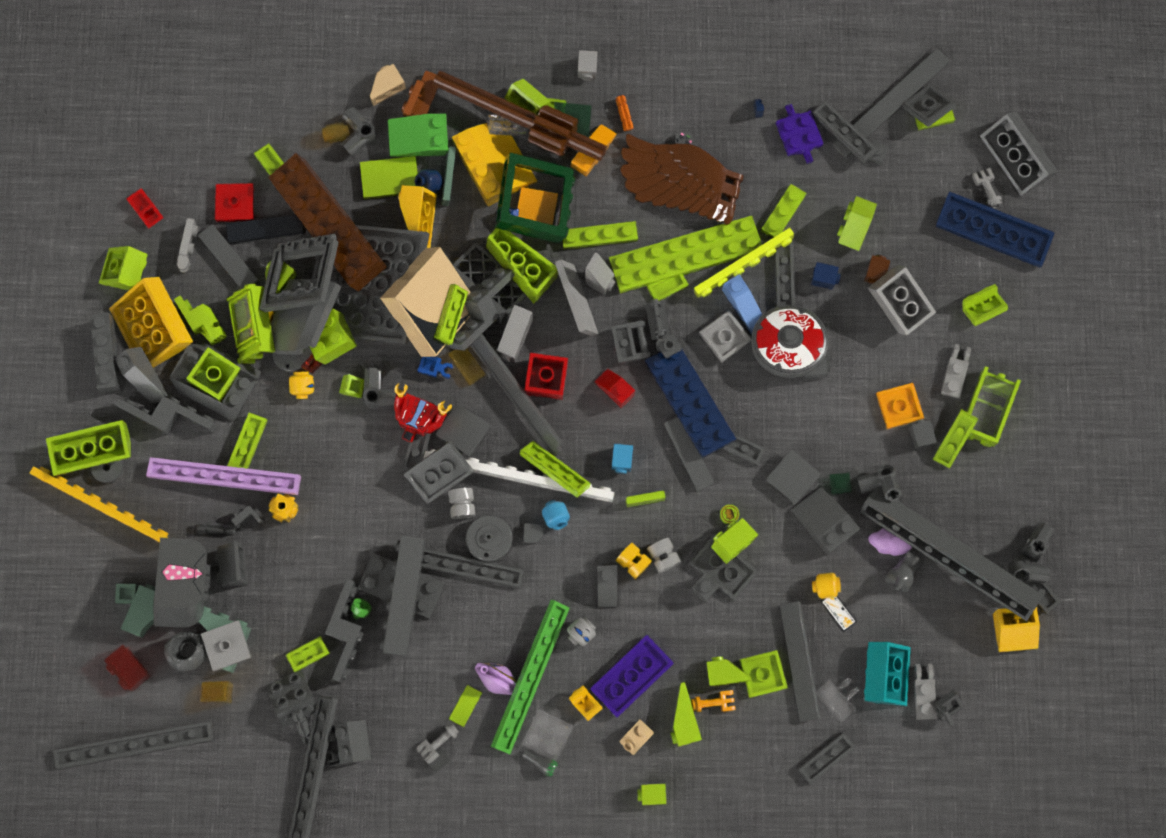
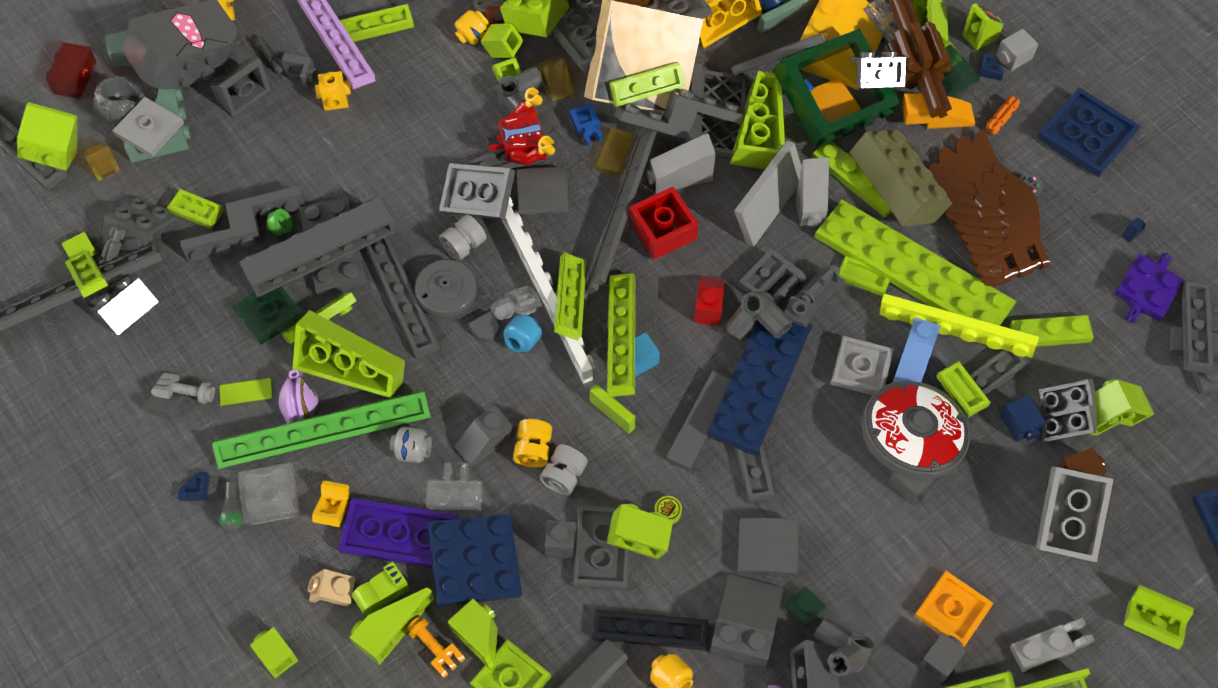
camera: 55 degrees right, 15 degrees down
(183, 716) = (47, 136): none -> lime slope
(279, 746) = (78, 245): none -> lime tile
(313, 752) = (86, 274): none -> lime tile
(329, 374) = (501, 40): none -> lime brick
(380, 358) = (556, 77): none -> clear yellow slope
(423, 658) = (268, 314): none -> clear green plate
(451, 628) = (340, 306): none -> lime plate
(484, 212) = (779, 53): none -> dark grey tile
(496, 631) = (344, 357): none -> lime wedge
(511, 776) = (196, 488): none -> dark blue tile
(533, 501) = (520, 300): none -> clear hinge
(548, 165) = (880, 70): none -> bracket
(556, 71) = (981, 27): none -> lime slope
(584, 90) = (990, 68): none -> dark blue tile
(605, 458) = (621, 335): none -> lime tile
(625, 213) = (900, 177): none -> olive brick
(630, 627) = (454, 494): none -> clear hinge
(659, 365) = (768, 315): none -> dark grey piece
(659, 710) = (380, 590): none -> lime leg
(676, 74) = (1088, 132): none -> dark blue plate
(681, 645) = (474, 559): none -> dark blue plate
(783, 293) = (963, 389): none -> lime tile
(791, 577) = (650, 630): none -> black tile
(841, 248) = (1069, 410): none -> dark grey slope

